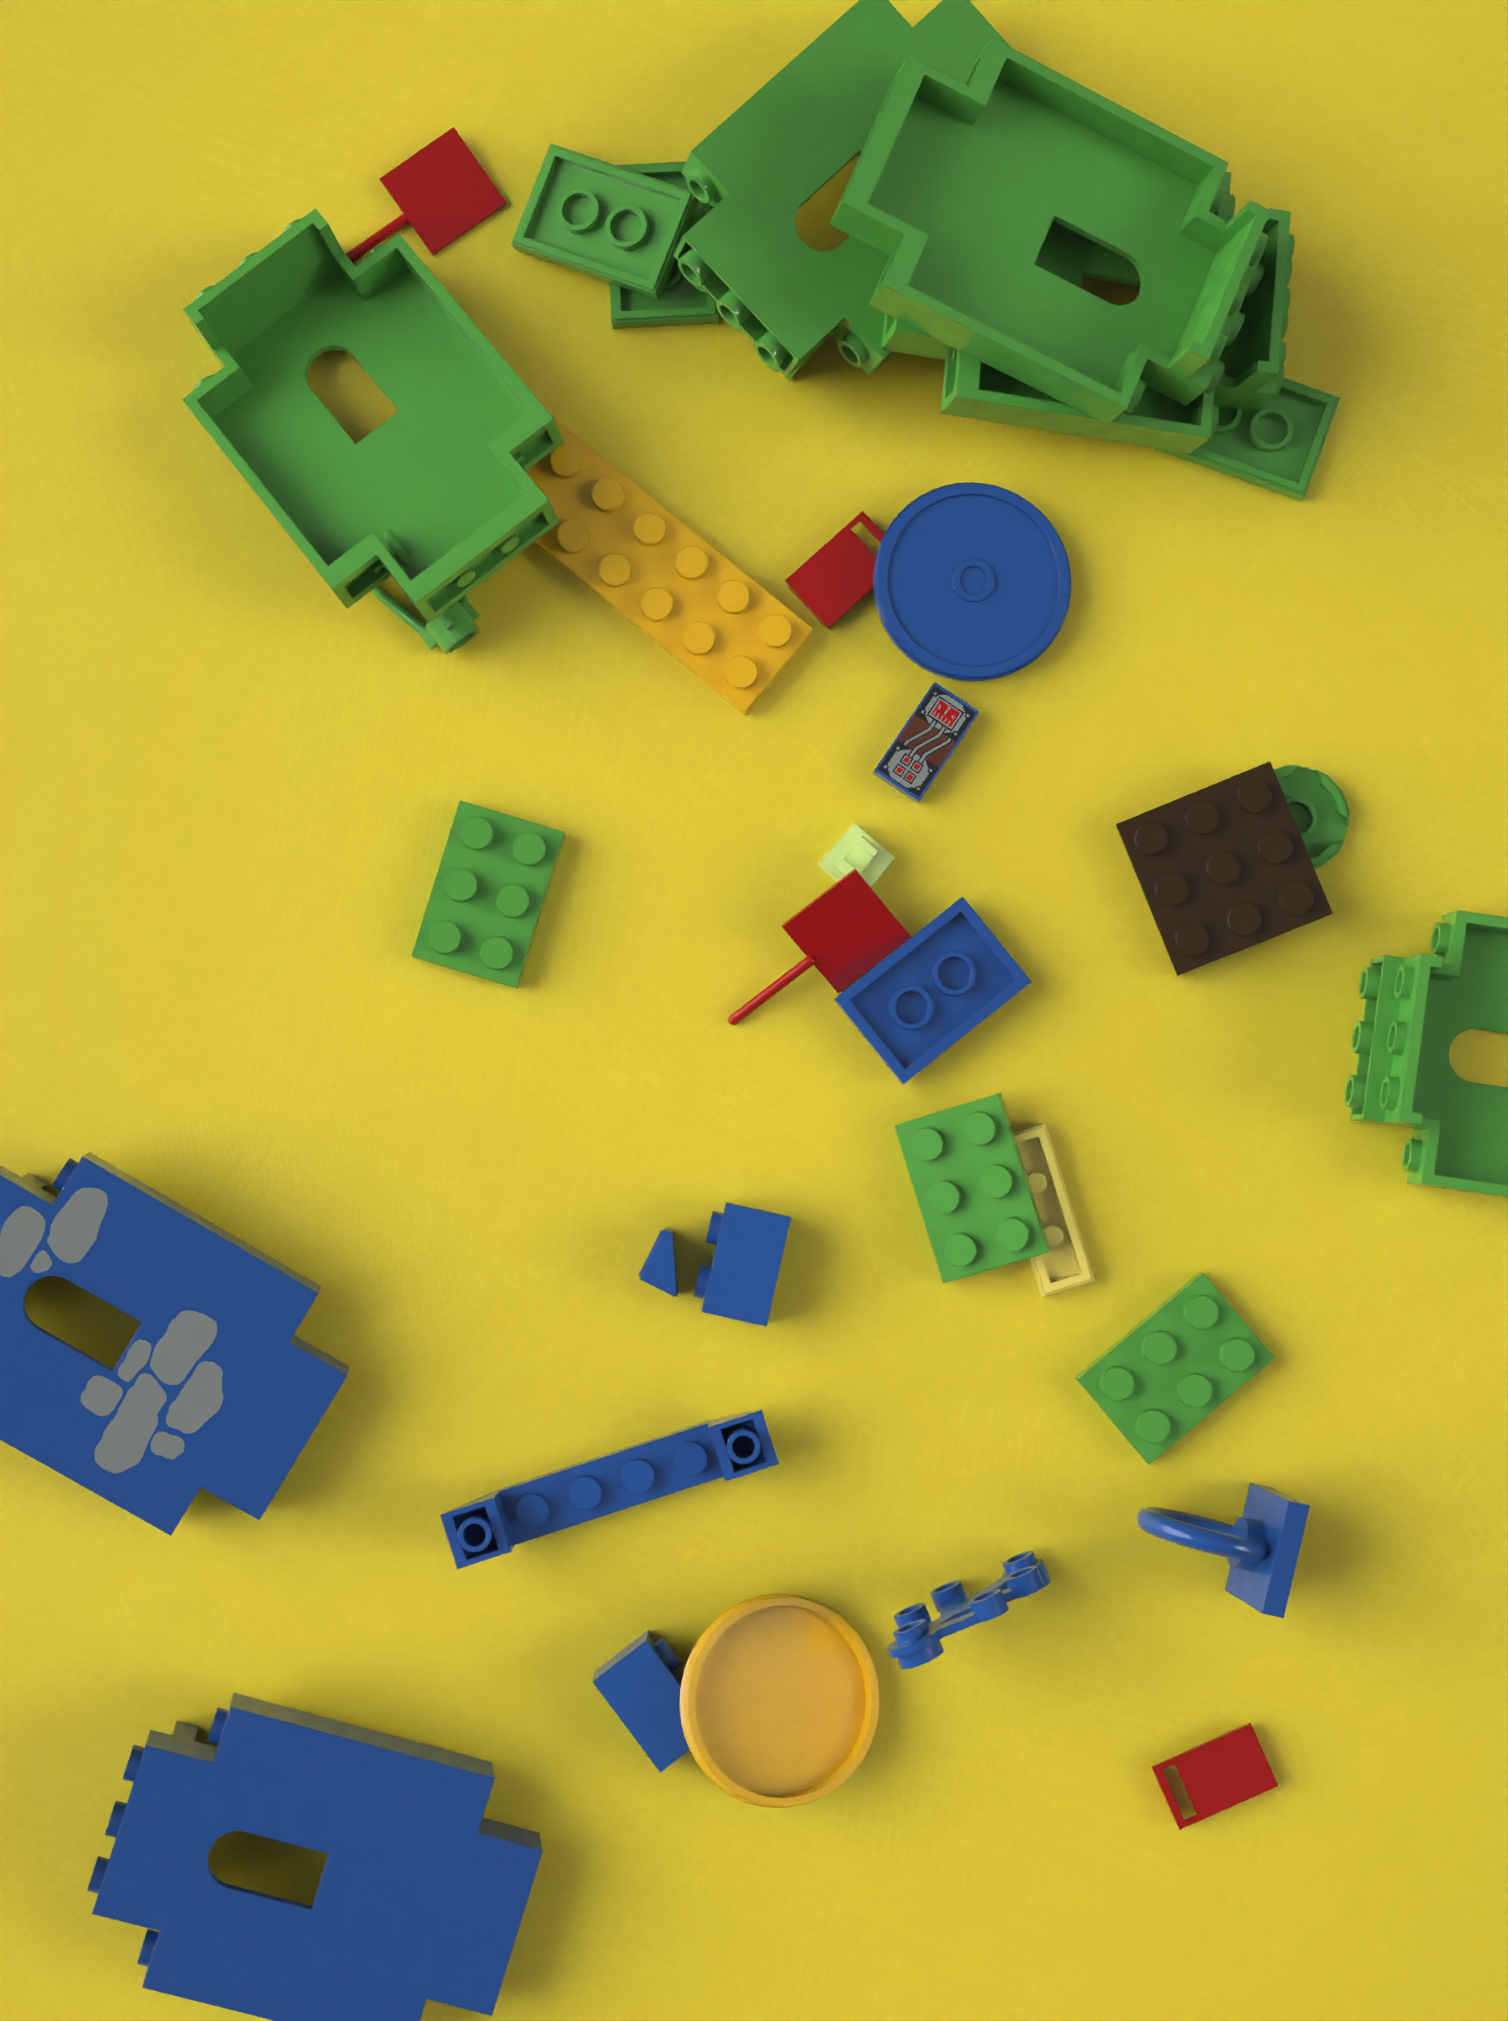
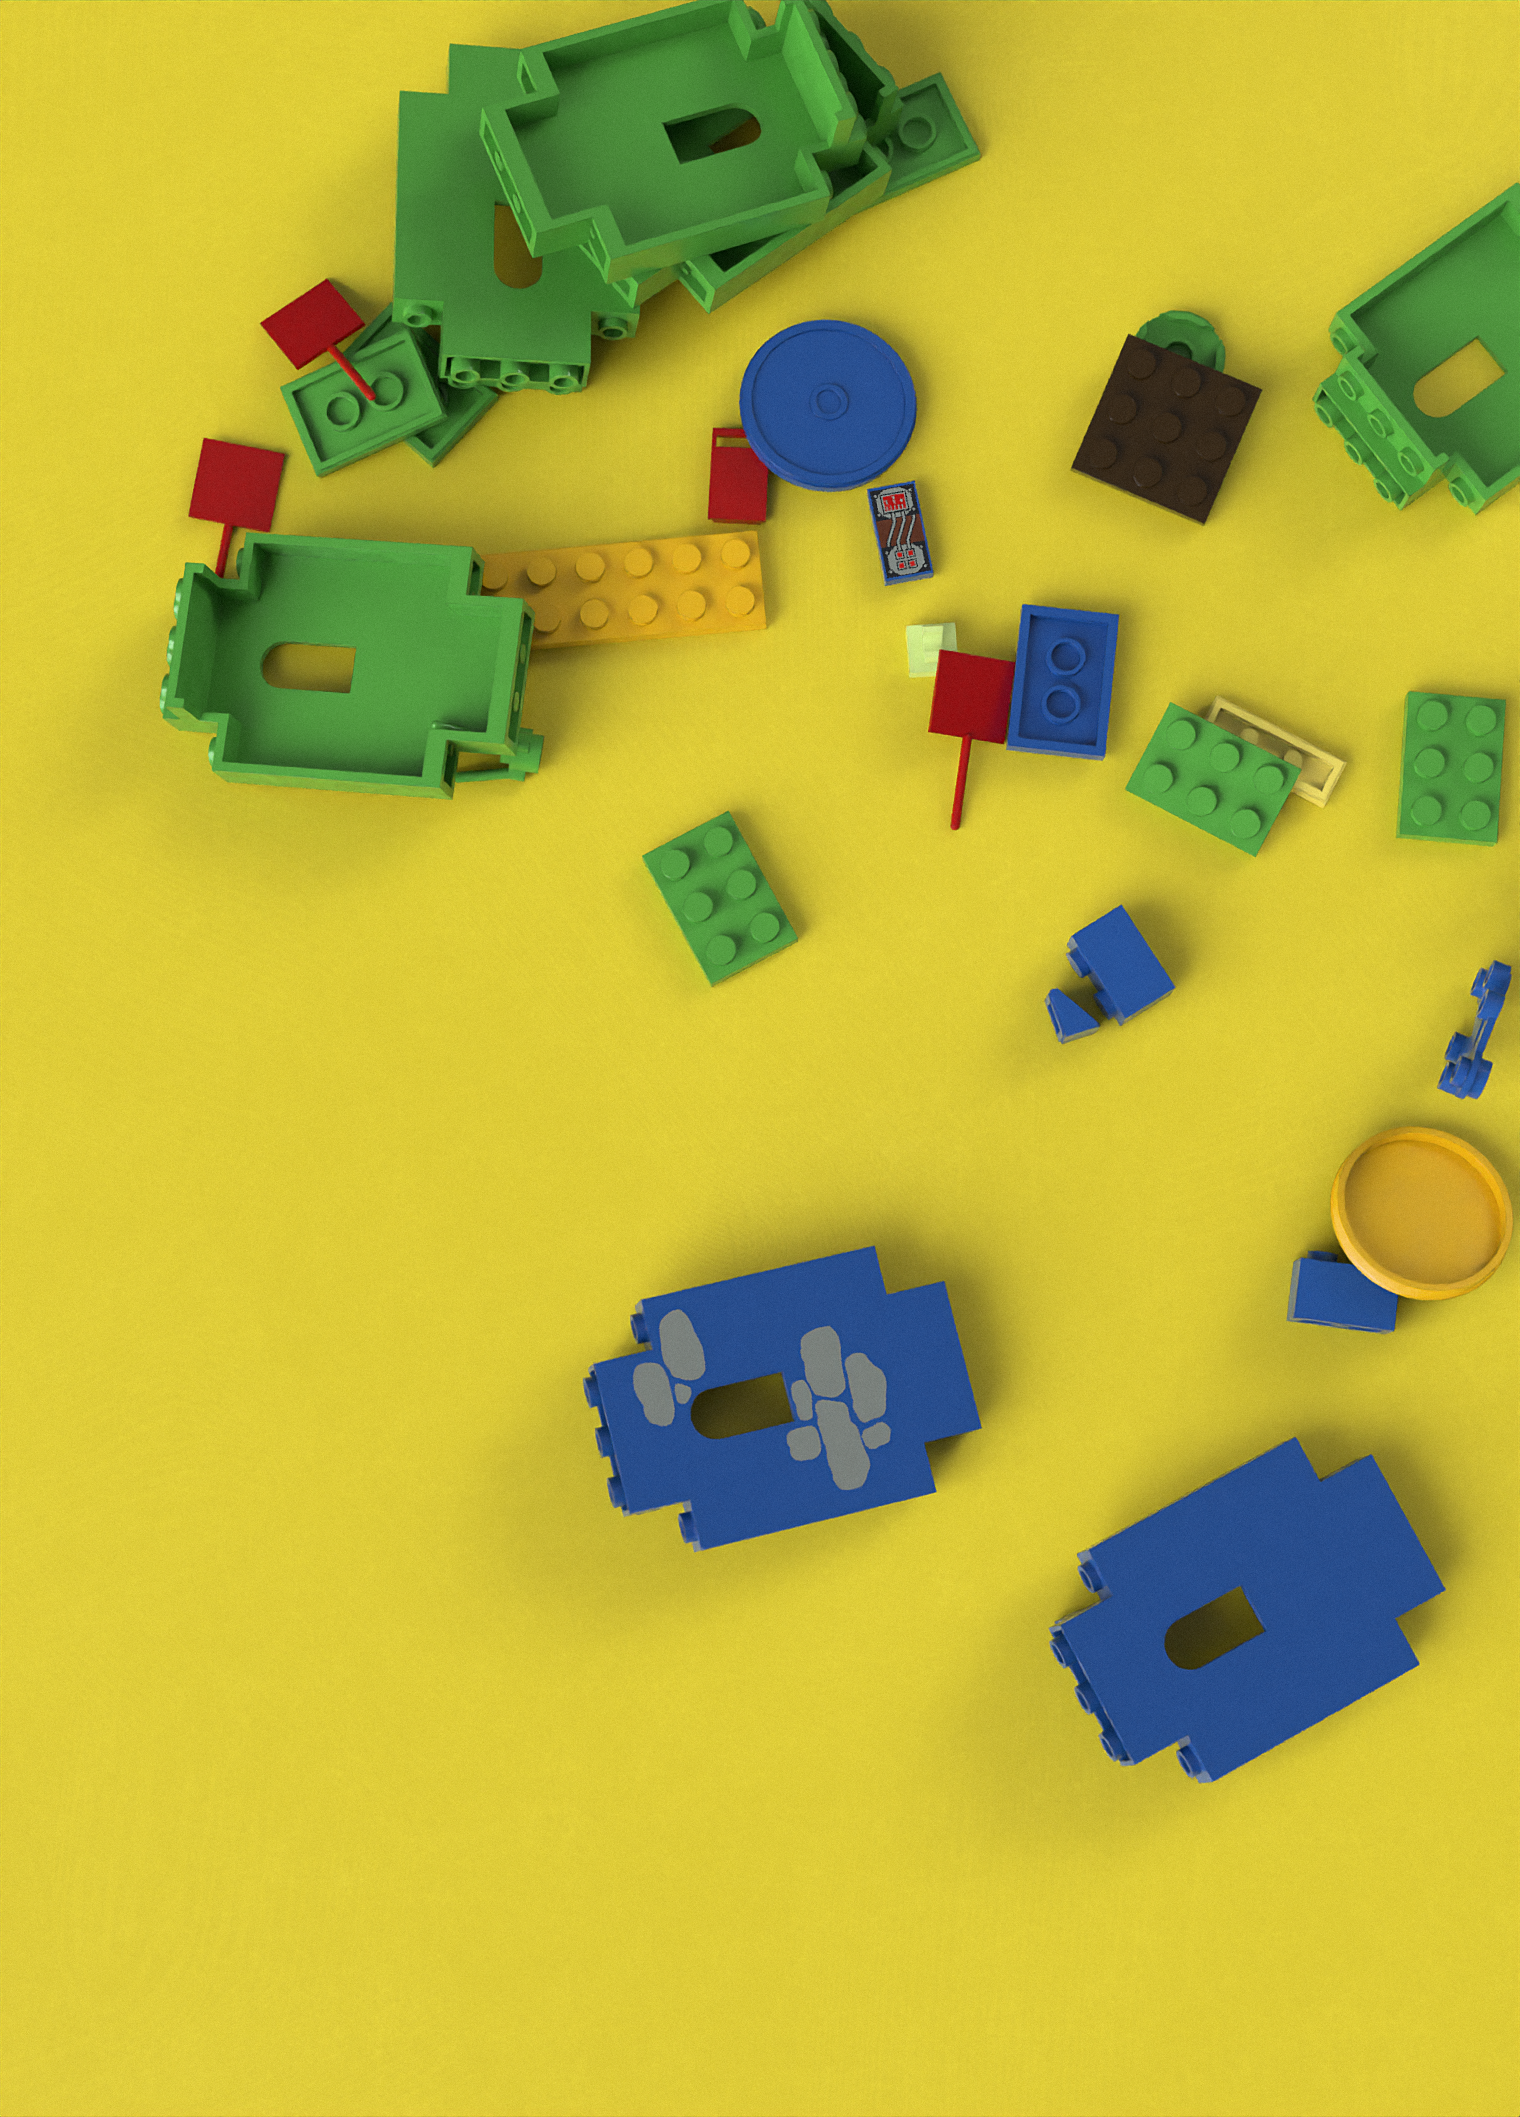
camera: 45 degrees left, 5 degrees down
(608, 1484) = (1179, 1184): blue slope -> none
(626, 120) = (314, 326): none -> red piece

